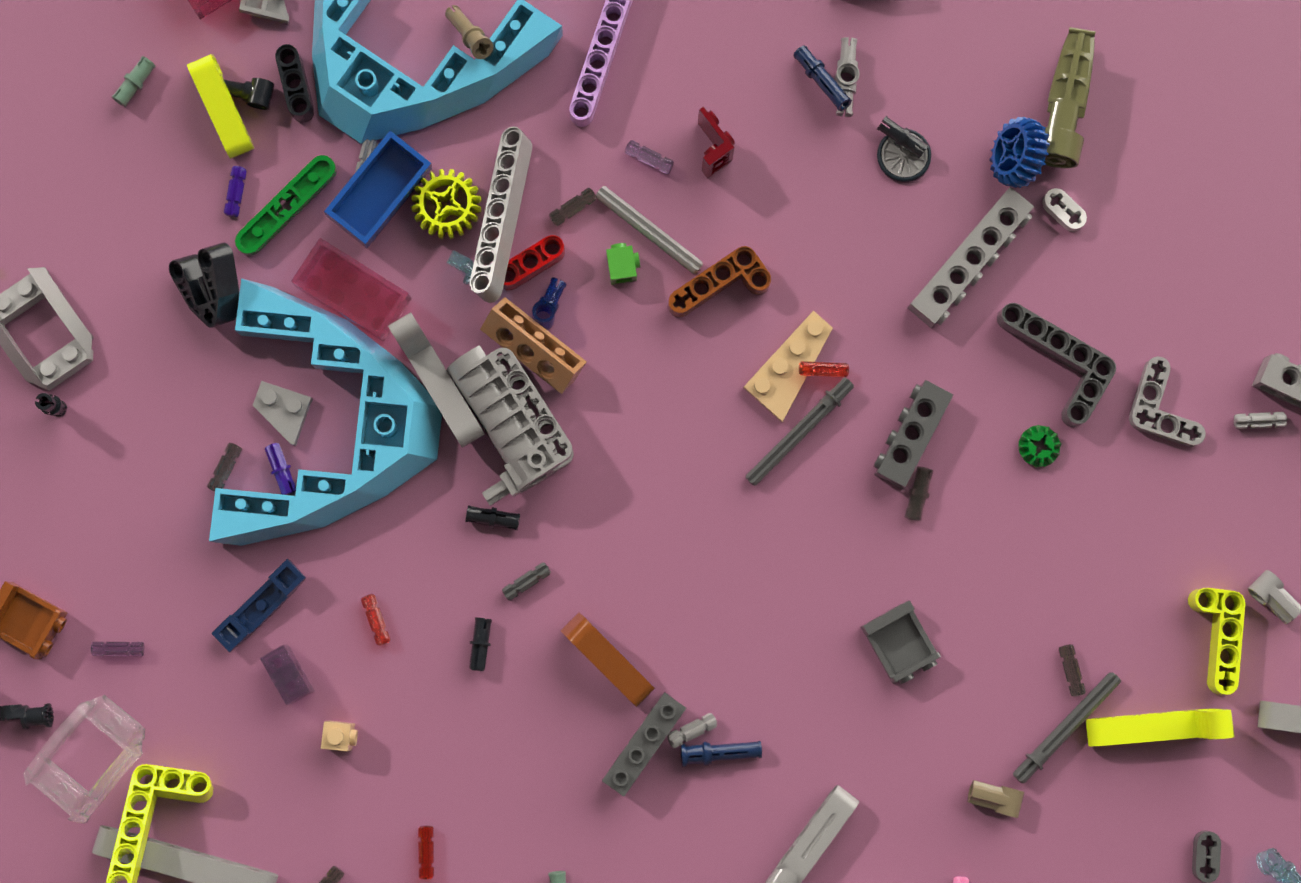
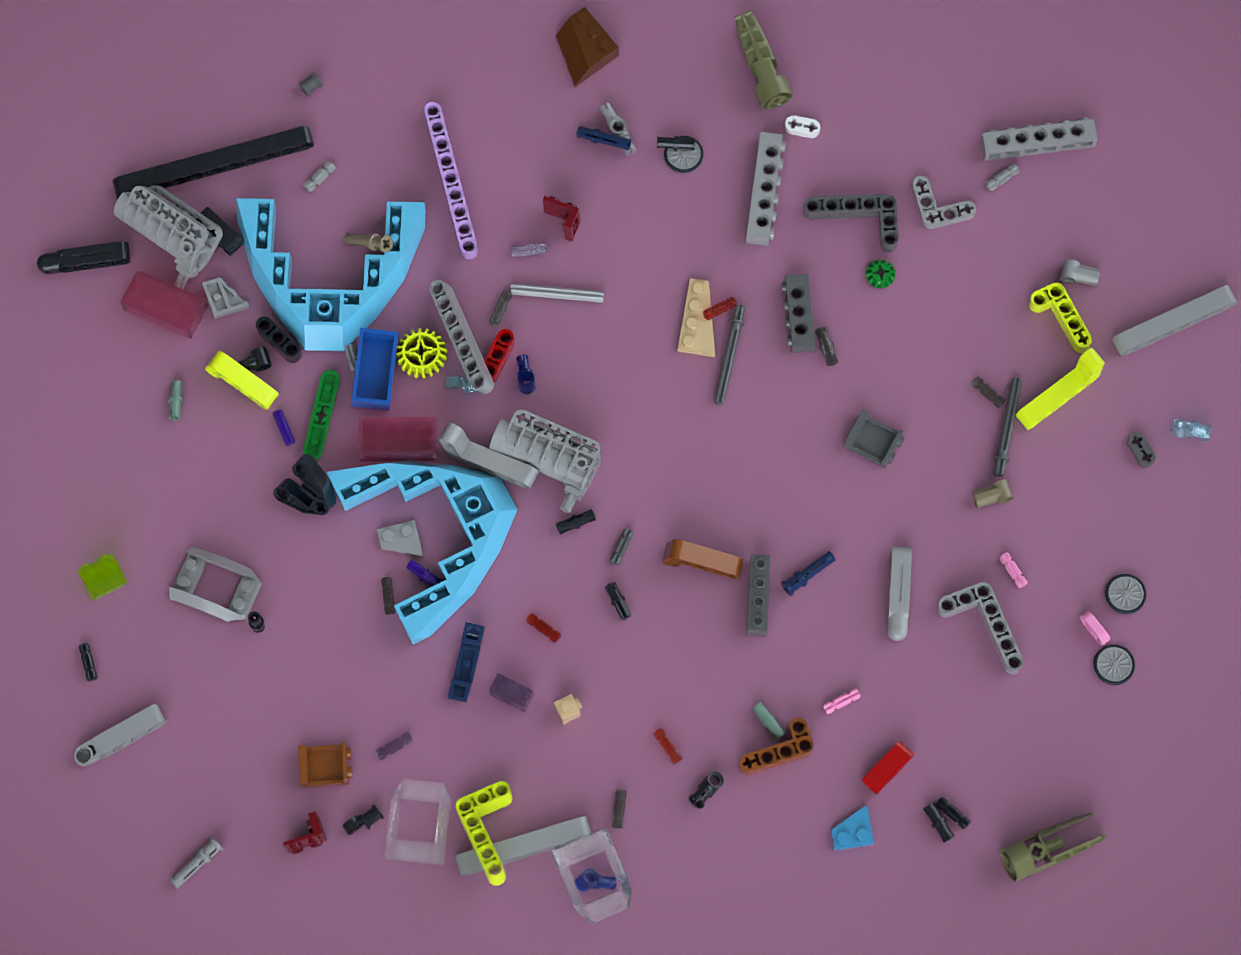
camera: 25 degrees left, 10 degrees down
(533, 345) = (540, 397): medium nougat brick -> none
(622, 263) = (554, 322): bright green brick -> none
(692, 730) = (782, 570): light grey axle -> none
(715, 285) = (620, 300): dark orange beam -> none
(1019, 152) = (752, 108): blue gear -> none

